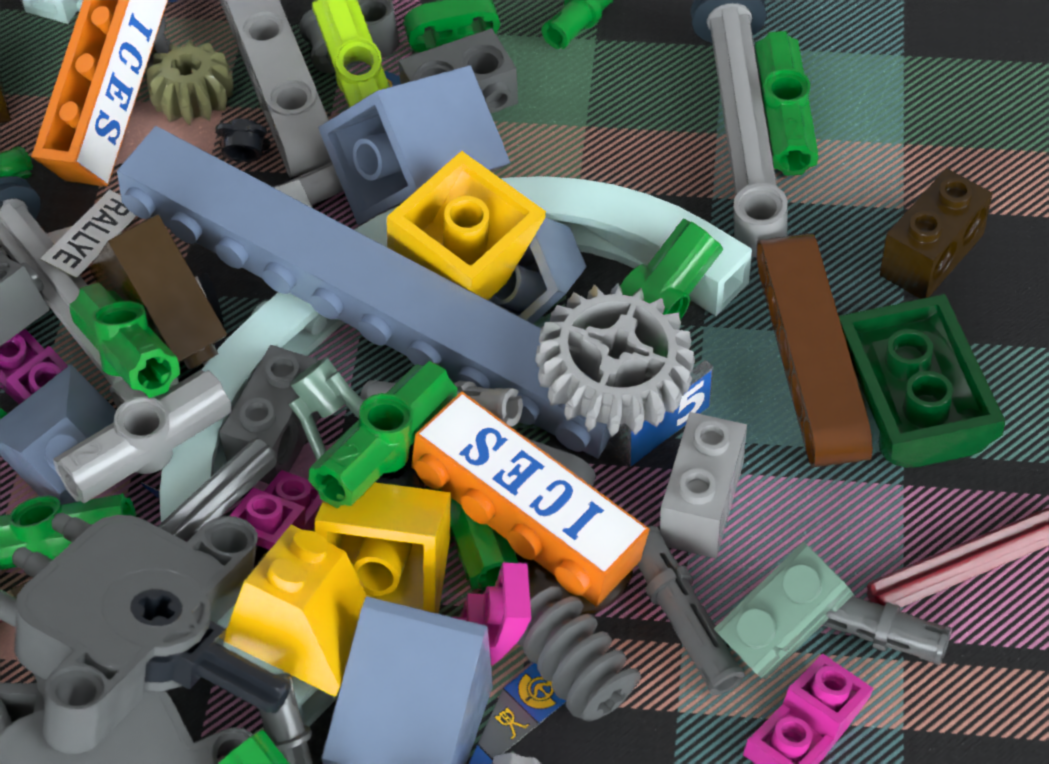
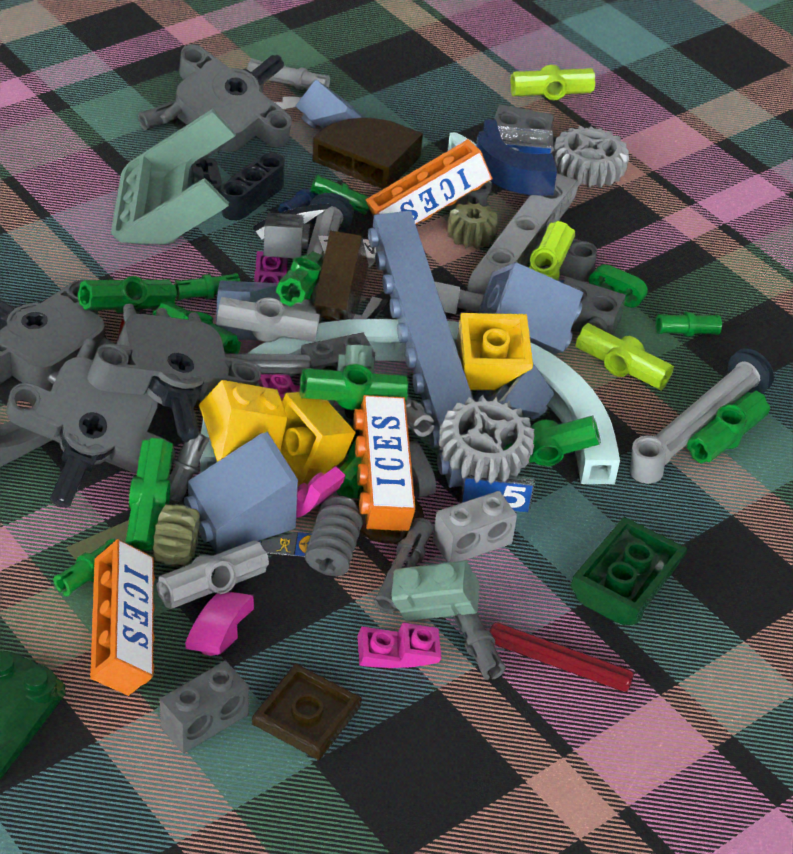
camera: 40 degrees right, 10 degrees down
(242, 140) = (463, 261): black plate -> none
(572, 110) = (624, 356): none -> lime piece
(813, 351) = (623, 497): reddish brown beam -> none
(935, 234) = (723, 527): dark brown brick -> none

